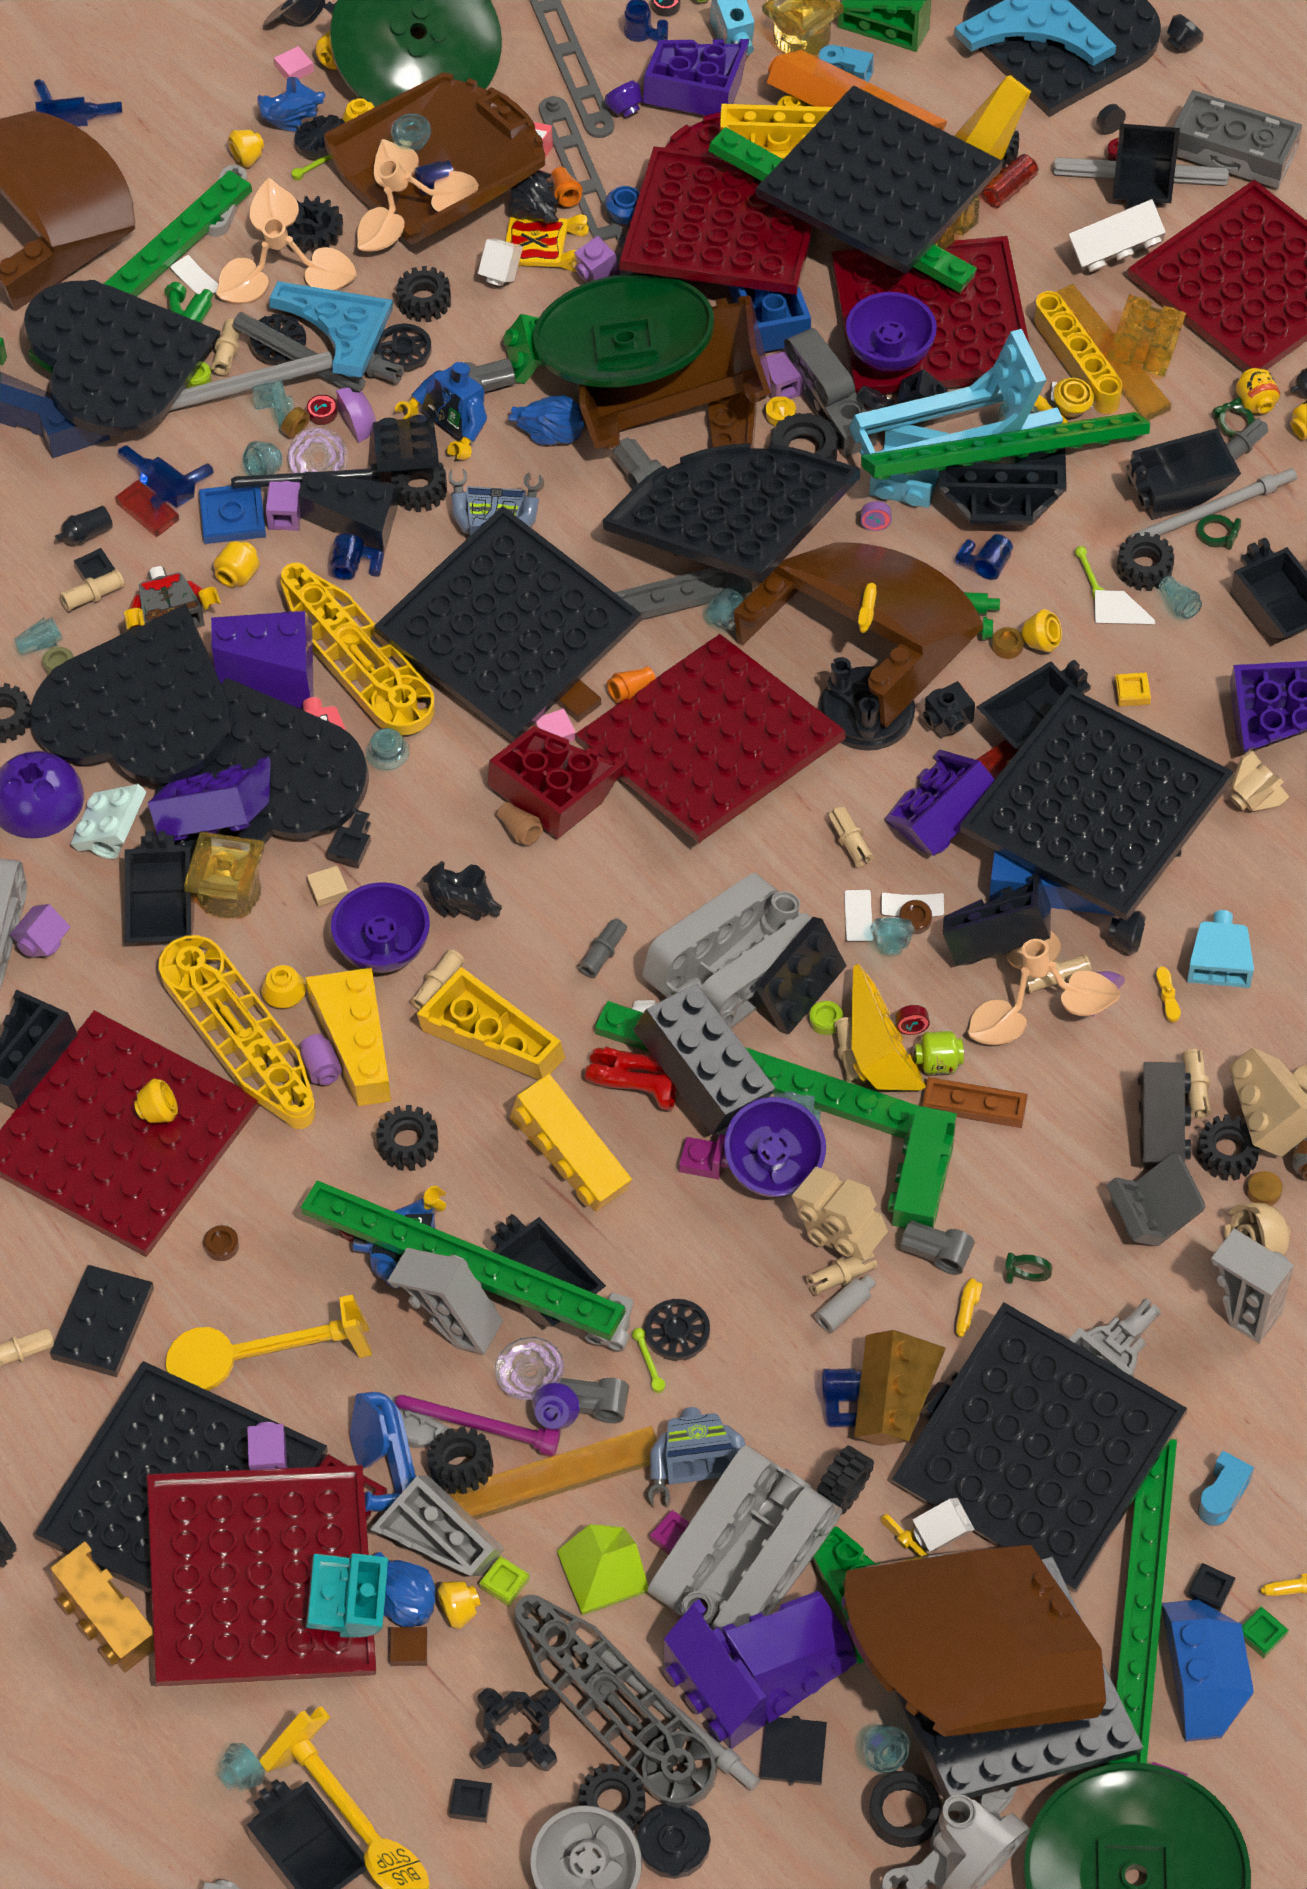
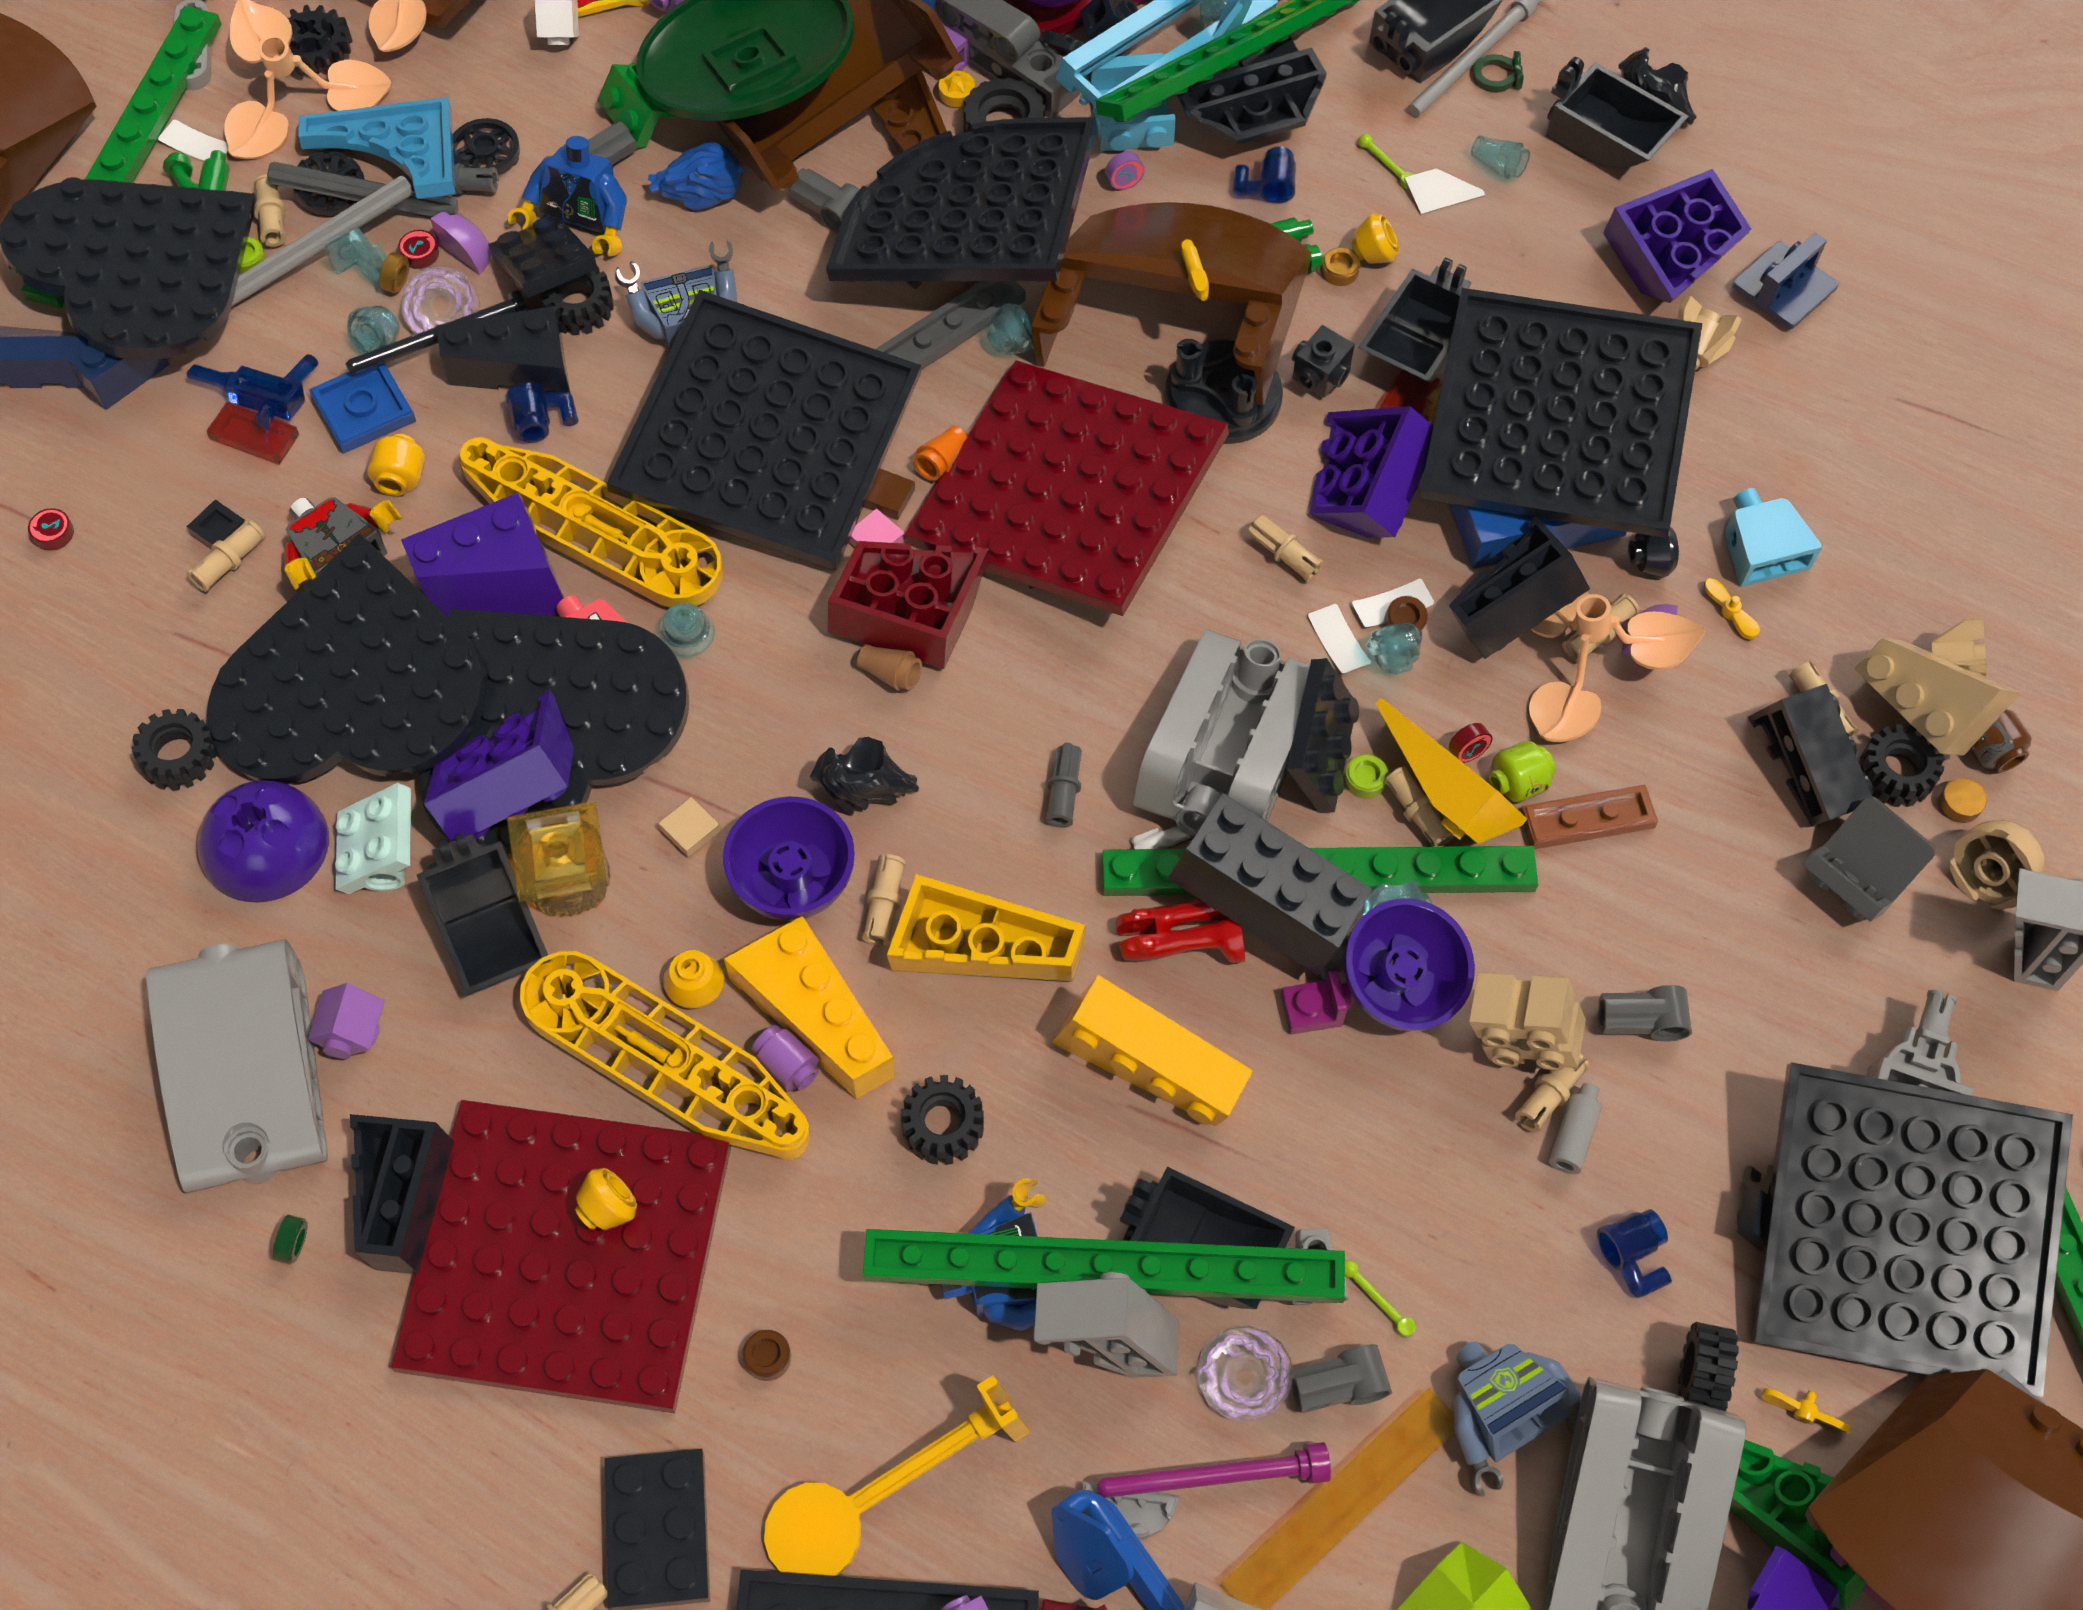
camera: 25 degrees left, 5 degrees up
(39, 636) = (181, 636): clear light blue cone -> none
(55, 657) = (214, 656): olive tile -> none
(85, 526) = (183, 479): black piece -> none
(283, 506) = (424, 375): medium lavender brick -> none
(352, 842) = (695, 763): black plate -> none
(426, 306) = (482, 95): black tyre -> none
(455, 1446) = (1224, 1567): black tyre -> none
(555, 1406) = (1307, 1415): dark purple cone -> none
(669, 1531) = (1529, 1526): magenta tile -> none
(677, 1329) = (1393, 1243): black wheel -> none
(894, 1385) = (1702, 1220): pearl gold wedge -> none
(924, 1168) = (1584, 924): green wedge -> none
(942, 1525) = (1851, 1380): white brick -> none
(970, 1297) = (1712, 1065): yellow piece -> none
(1012, 1261) = (1749, 999): dark green piece -> none
(1132, 689) = (1503, 273): yellow tile -> none
(1149, 547) = (1443, 144): black tyre -> none

